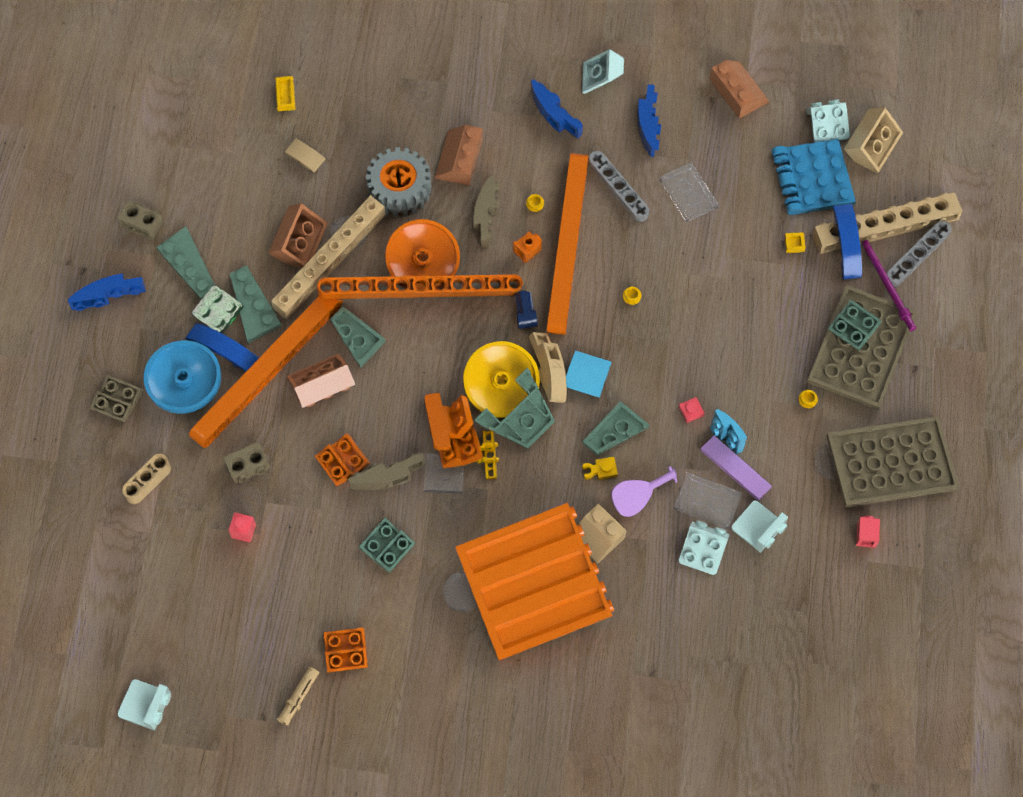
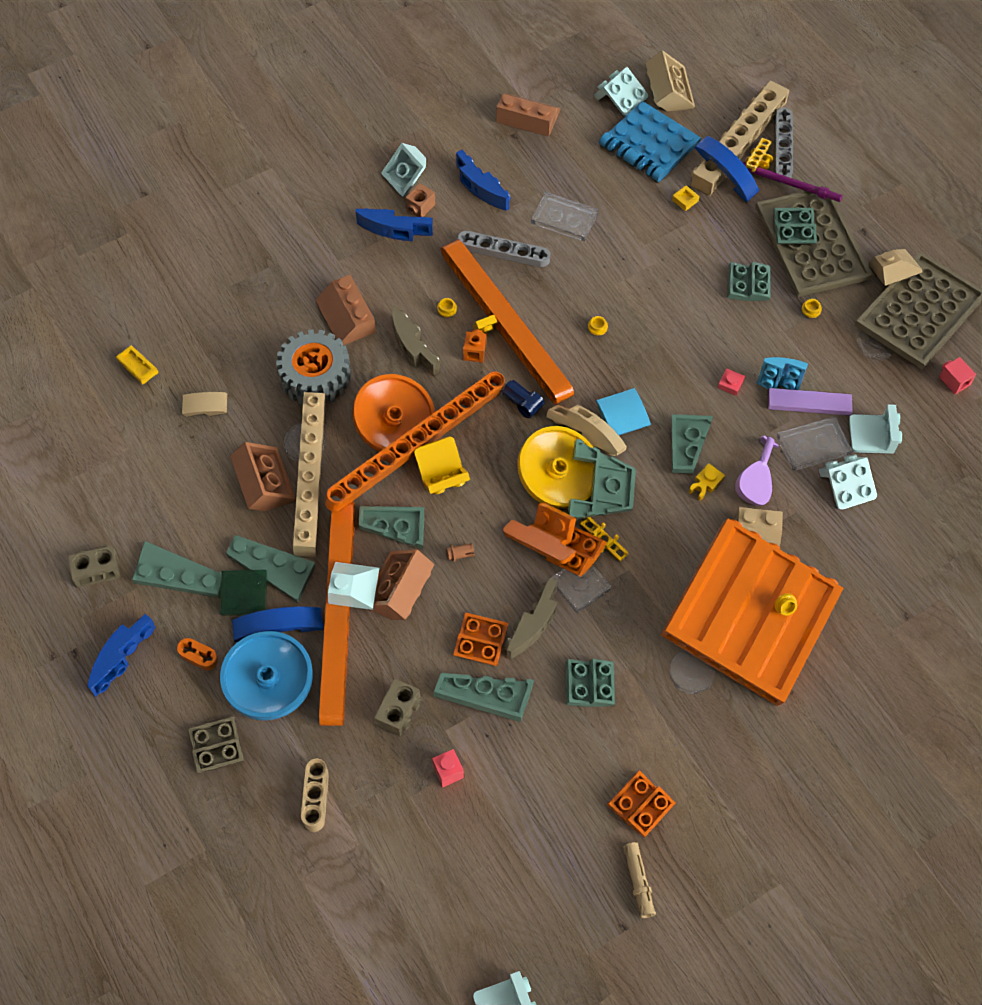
camera: 40 degrees left, 5 degrees down
(158, 328) = (195, 658): none -> orange beam
(286, 357) = (353, 585): none -> light aqua slope
(316, 505) = (495, 696): none -> sand green wing
(381, 388) = (460, 552): none -> nougat pin
(421, 318) = (440, 465): none -> yellow bracket
(548, 236) = (486, 324): none -> yellow plate
(555, 593) = (786, 604): none -> yellow plate
(592, 99) = (420, 200): none -> nougat brick
(780, 343) = (748, 282): none -> sand green slope
(891, 249) = (762, 158): none -> yellow piece
(903, 413) = (894, 266): none -> tan slope

